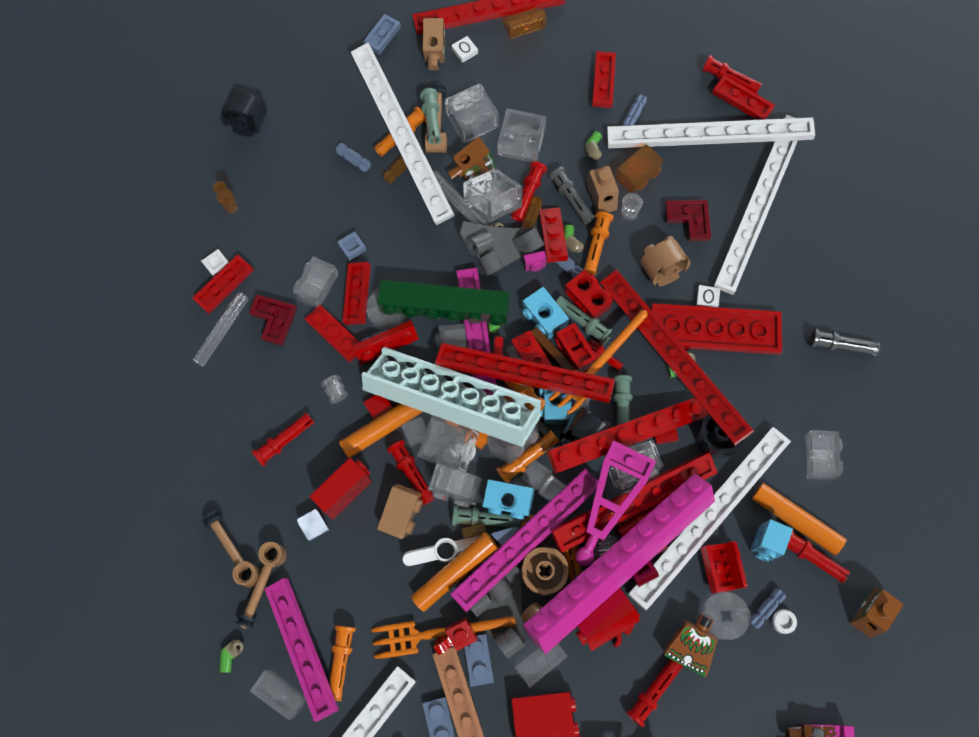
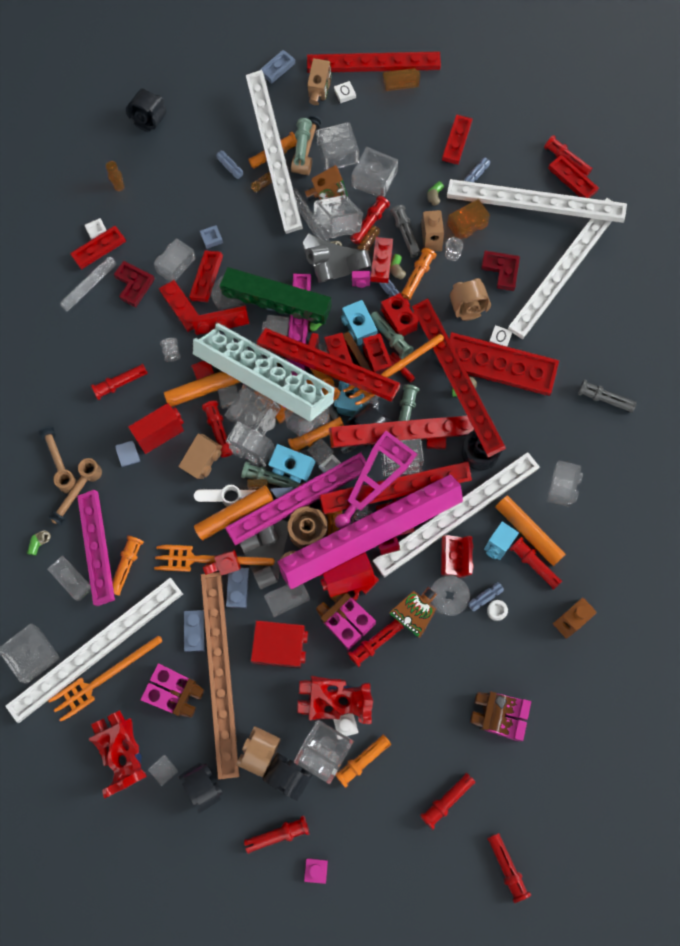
camera: 10 degrees right, 0 degrees up
(606, 670) = (339, 616): none -> dark pink hips

